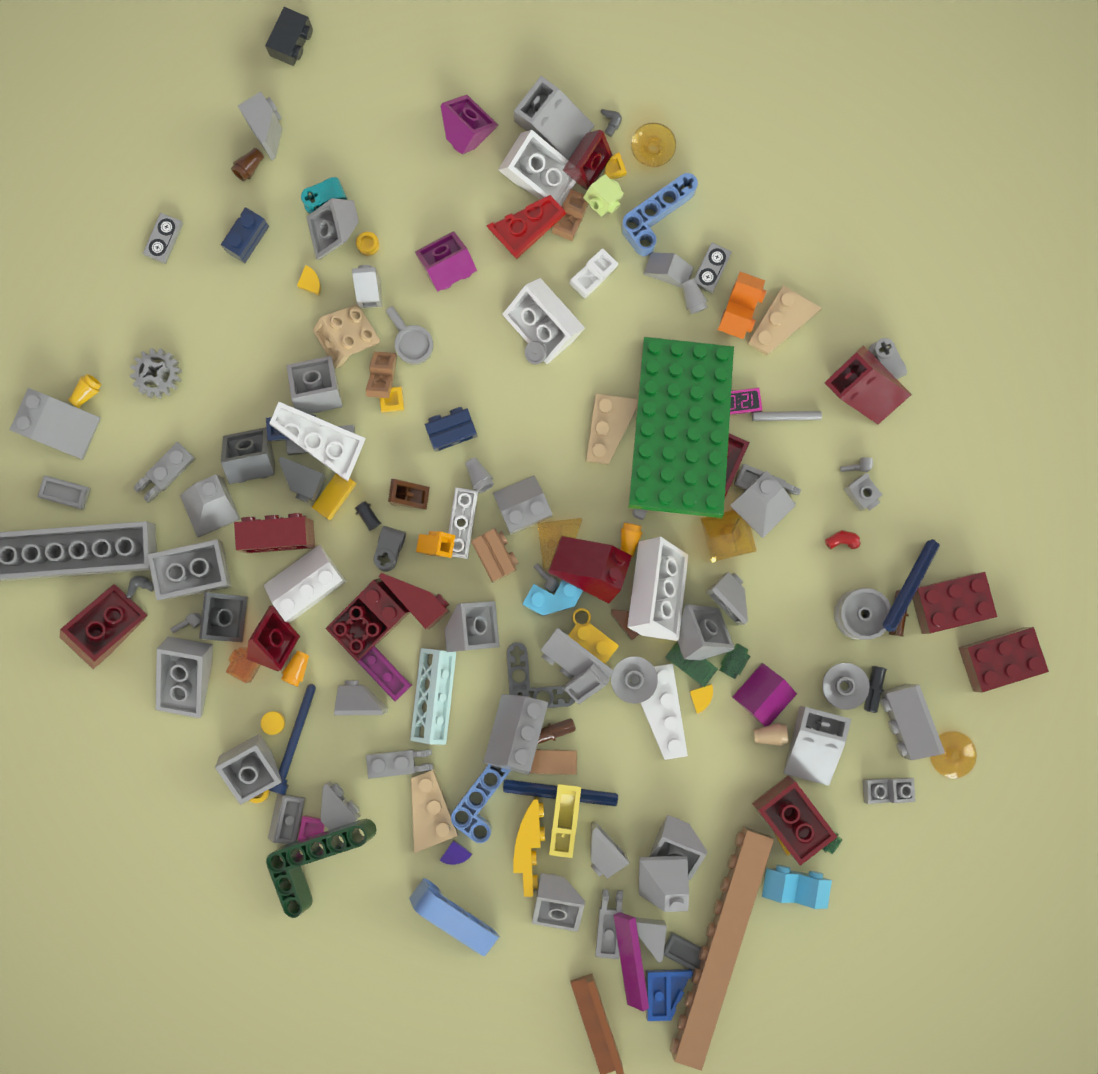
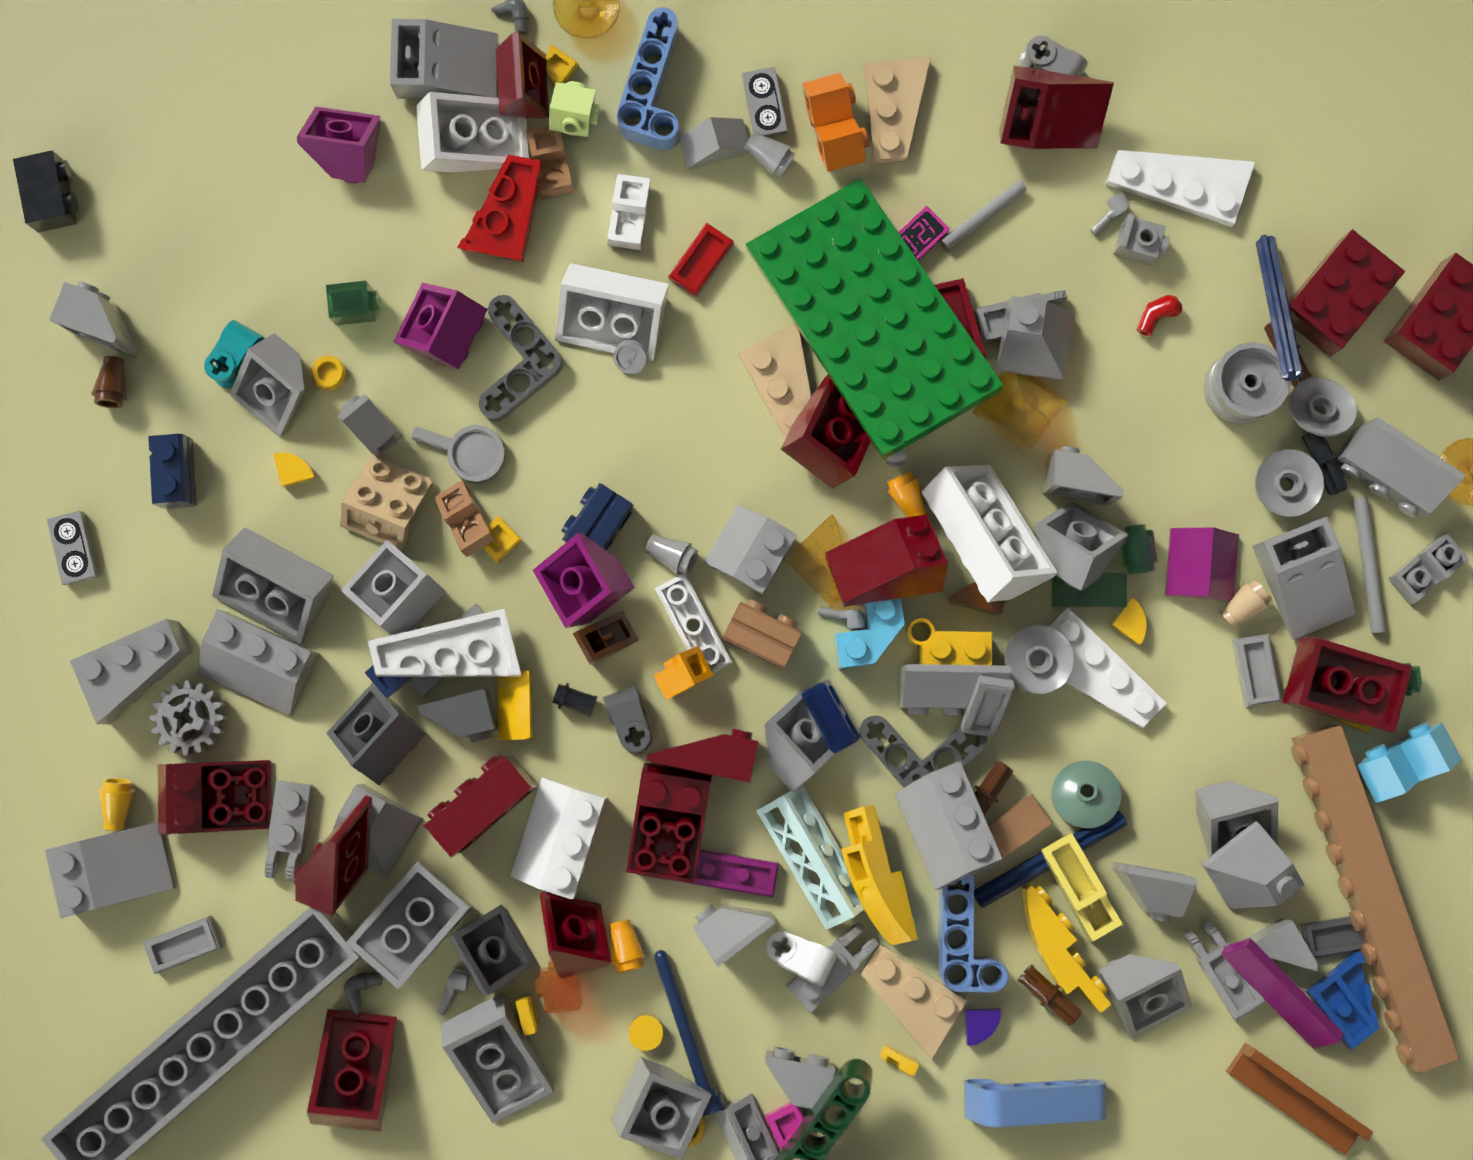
camera: 35 degrees left, 0 degrees up
(138, 425) = (214, 796): none -> dark red slope
(143, 323) = (128, 667): none -> light grey wedge
(175, 508) = (336, 862): none -> dark red slope
(213, 369) = (255, 661): none -> light grey slope
(216, 666) = (528, 1014): none -> yellow tile
(252, 334) = (271, 584): none -> light grey slope
(385, 746) = (805, 958): none -> white piece
(399, 844) = (904, 1062): none -> yellow tile
(407, 214) = (352, 302): none -> clear green brick
(418, 454) = (582, 580): none -> magenta slope
(453, 739) = (878, 889): none -> yellow slope
(476, 317) = (528, 366): none -> dark grey beam
(498, 626) = (830, 716): none -> clear blue slope
(504, 867) = (1050, 995): none -> reddish brown axle
(603, 784) = (1081, 810): none -> sand green dish
(608, 474) = (827, 437): none -> dark red slope
(613, 328) = (701, 260): none -> red tile
(751, 775) = (1256, 670): none -> light grey tile
(857, 764) = (1369, 565): none -> light grey bar
(903, 658) = (1326, 397): none -> light grey dish
(912, 479) = (1188, 183): none -> white wing

